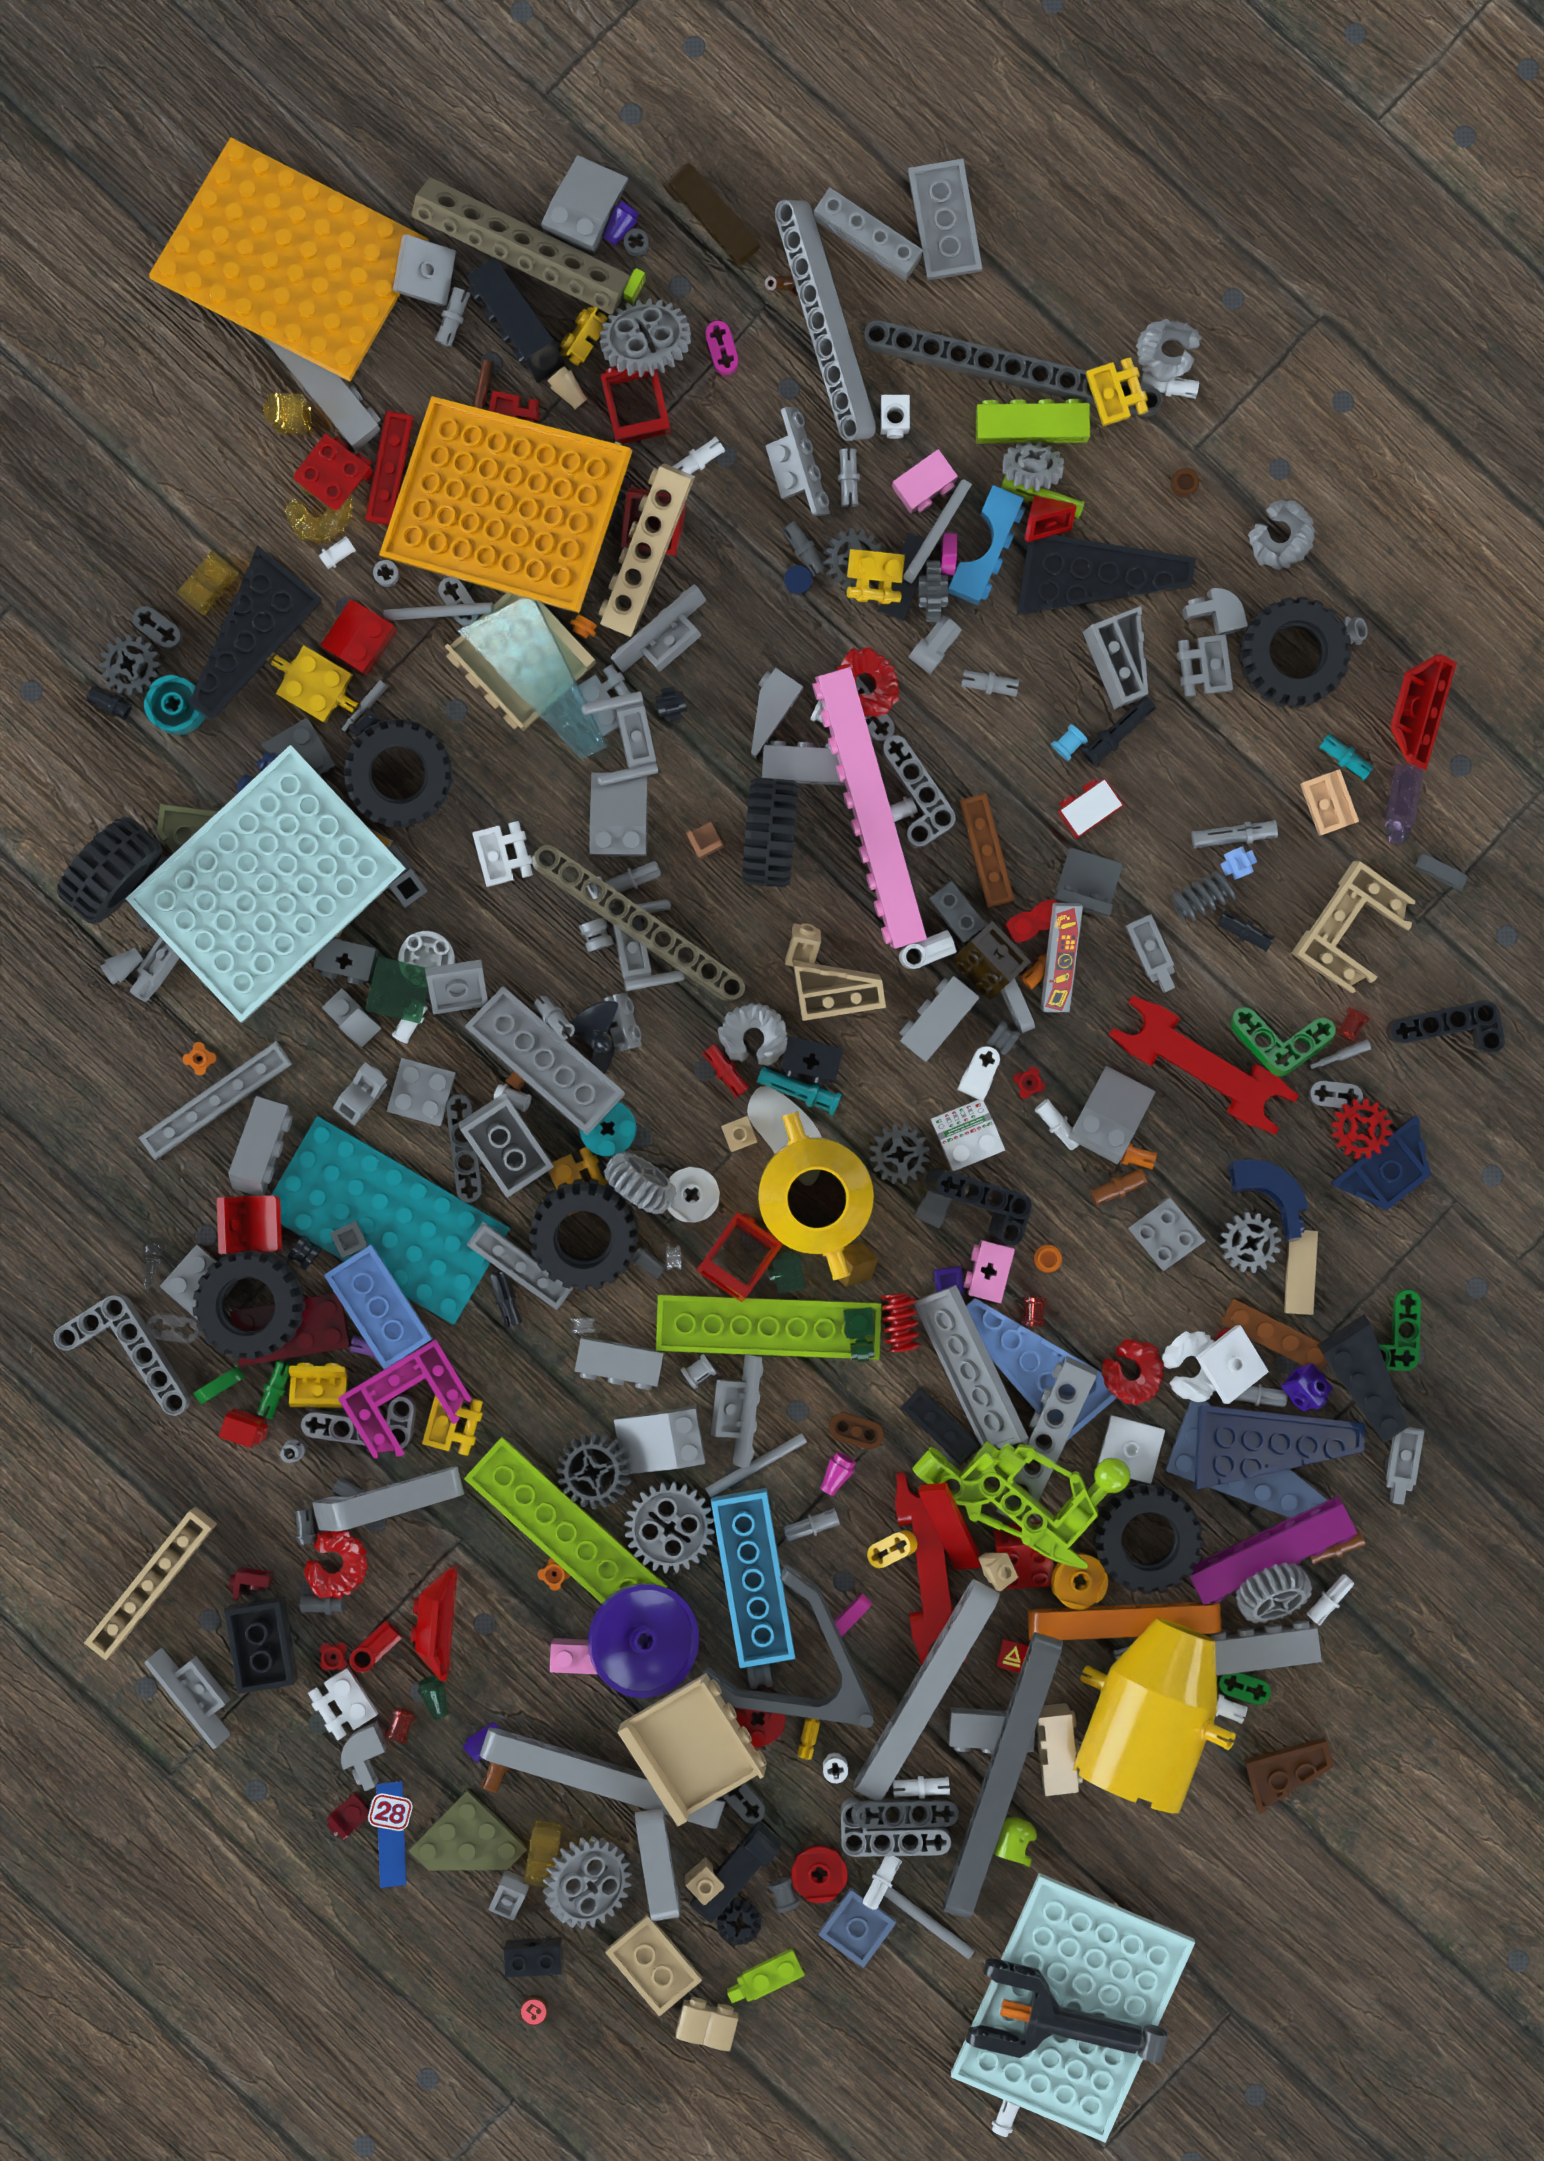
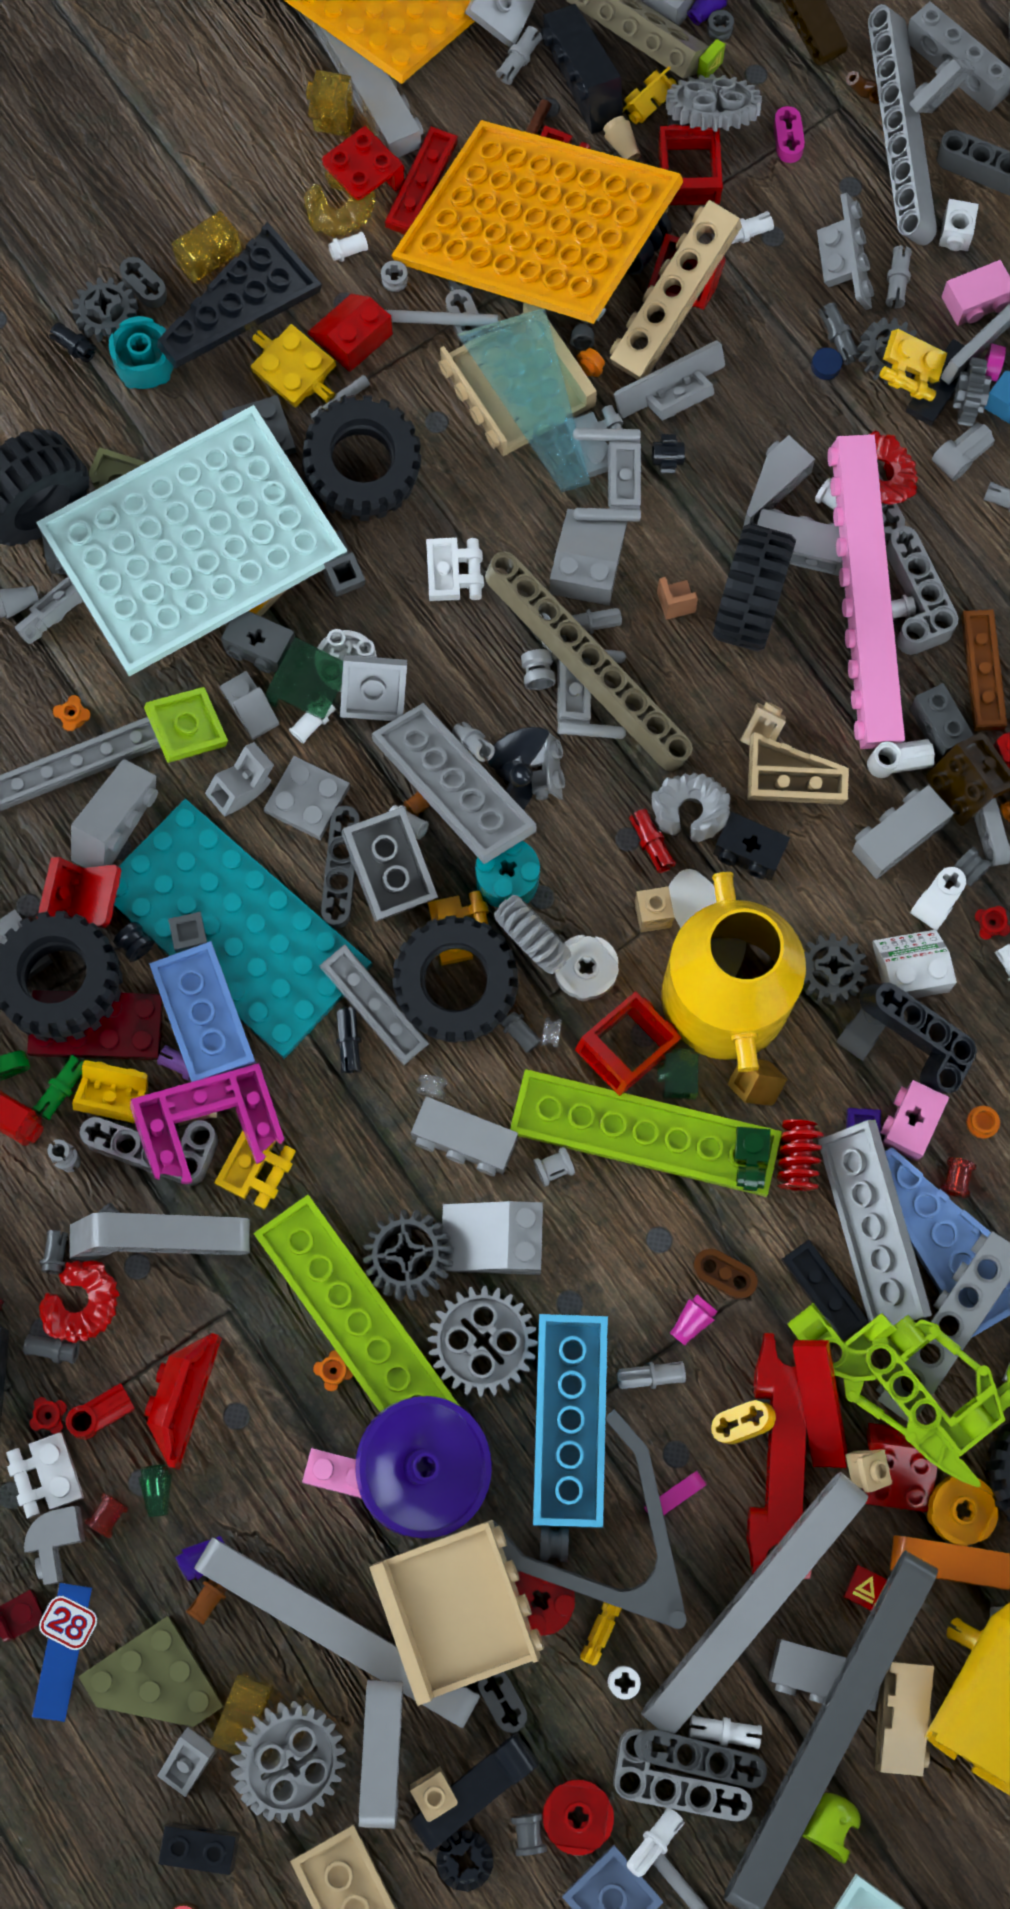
camera: 10 degrees right, 15 degrees down
(301, 1050) = (185, 724): none -> lime plate
(736, 1410) = (589, 1219): light grey bracket -> none
(756, 1465) = (599, 1291): light grey bar -> none
(812, 1095) = (745, 885): teal pin -> none
(853, 280) = (948, 79): none -> light grey plate

